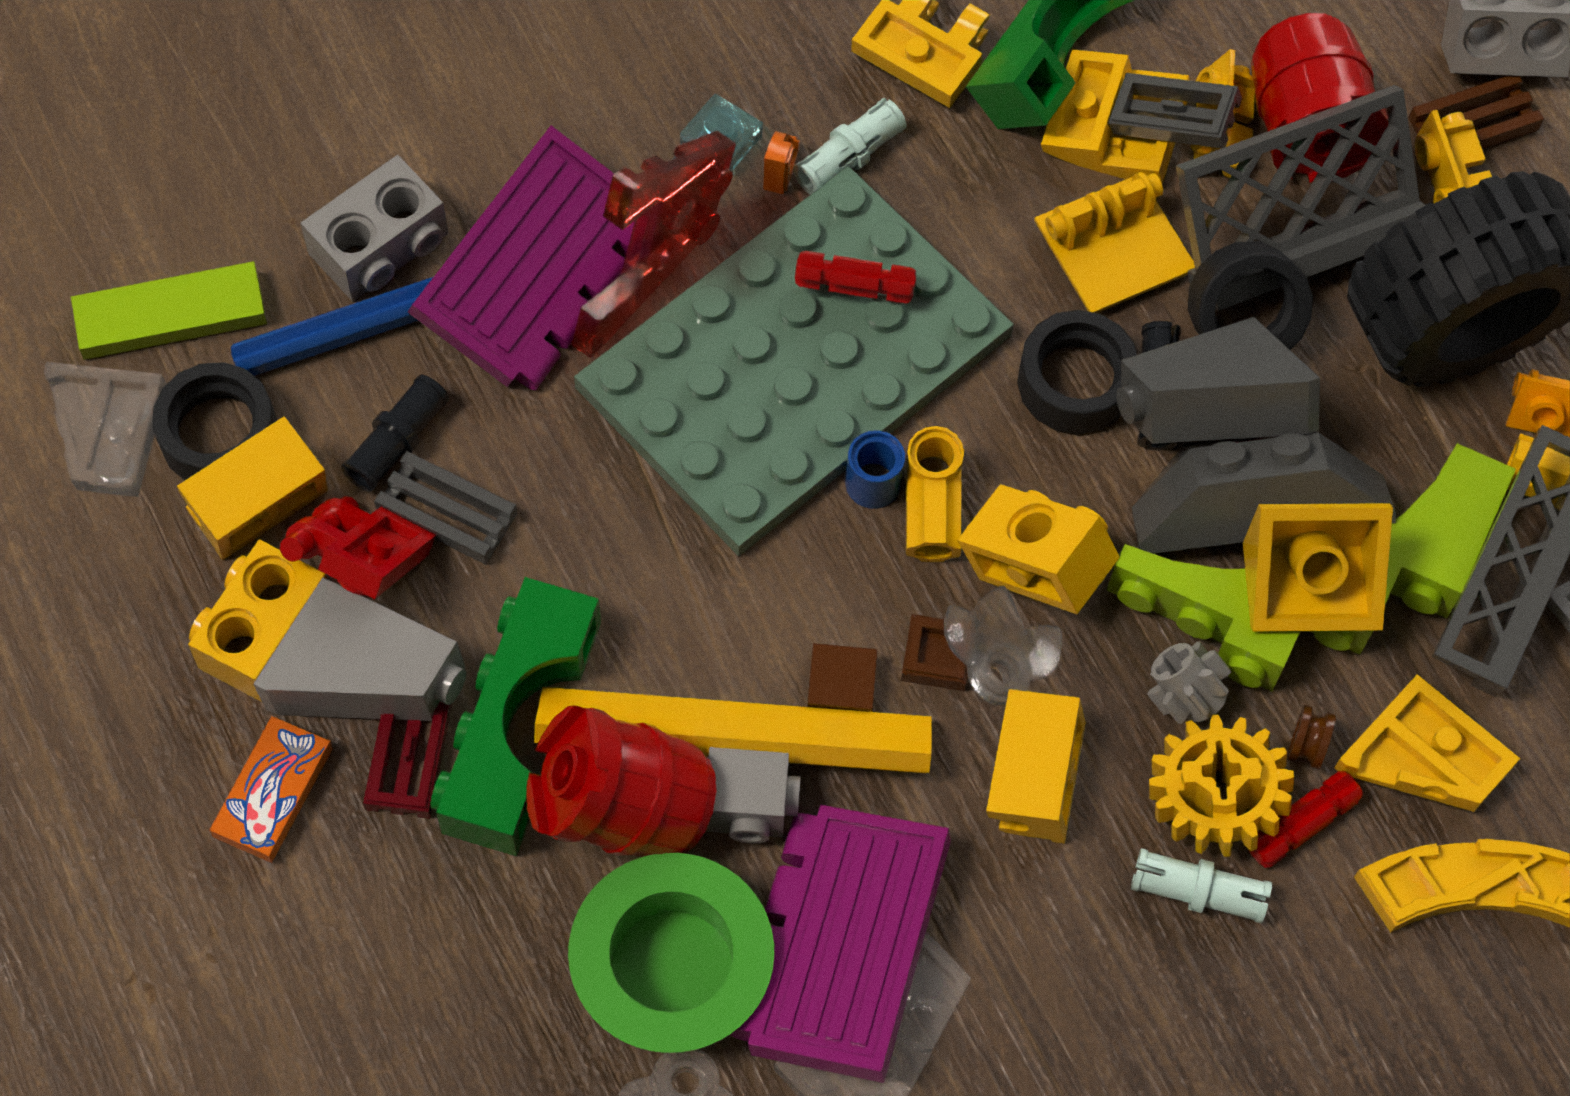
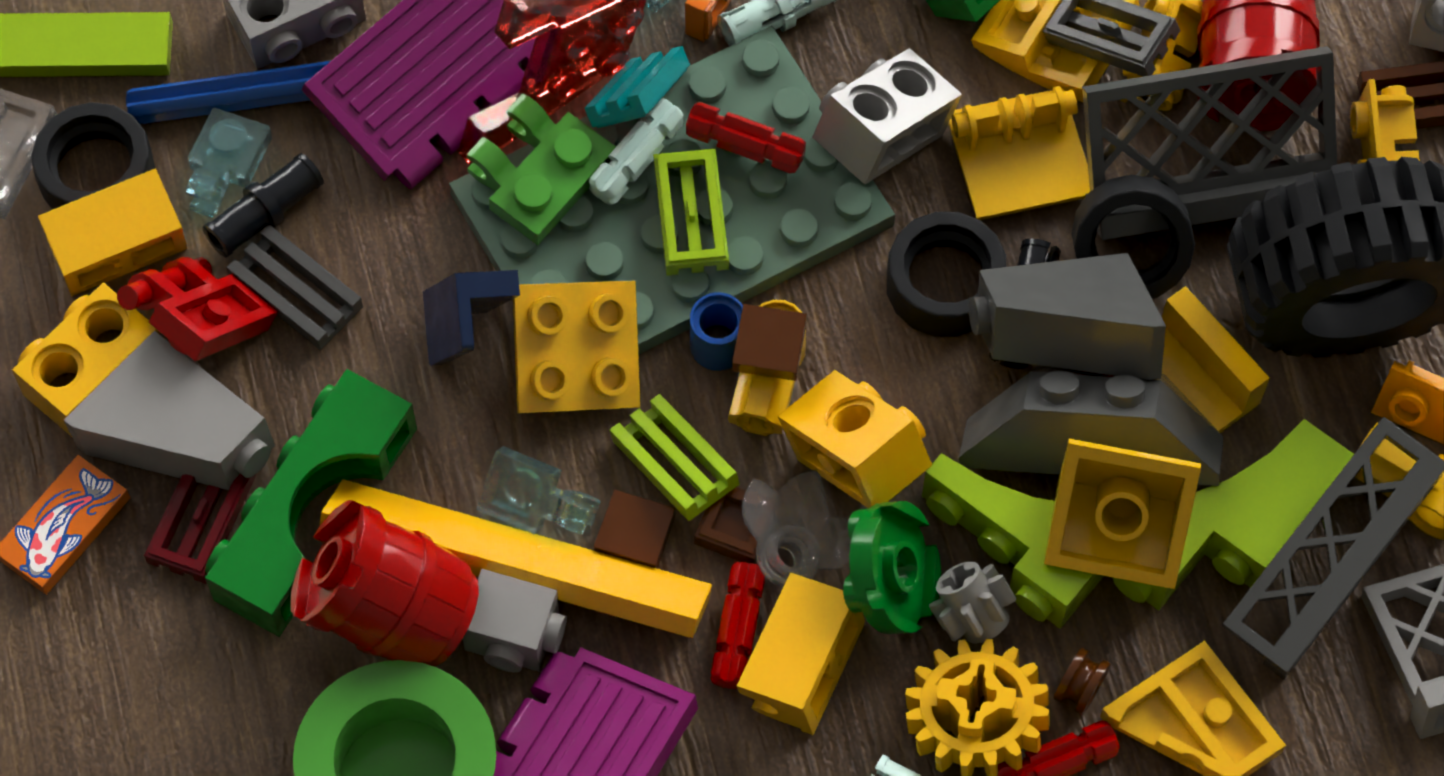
camera: 15 degrees right, 0 degrees up
(344, 388) = (224, 154): none -> clear light blue plate
(615, 499) = (451, 306): none -> dark blue panel
(676, 352) = (549, 178): none -> bright green plate
(727, 664) = (526, 494): none -> clear light blue plate
(743, 510) = (576, 346): none -> yellow hinge
(744, 243) = (639, 85): none -> teal tile
(753, 310) = (635, 152): none -> light aqua axle
(836, 402) = (695, 257): none -> lime tile
(841, 559) = (646, 424): none -> lime tile
(934, 469) = (769, 342): none -> reddish brown tile
(966, 752) = (737, 624): none -> red axle
(983, 229) = (885, 115): none -> light grey brick
(1106, 664) = (891, 567): none -> green plate
(1354, 408) = (1209, 362): none -> yellow panel

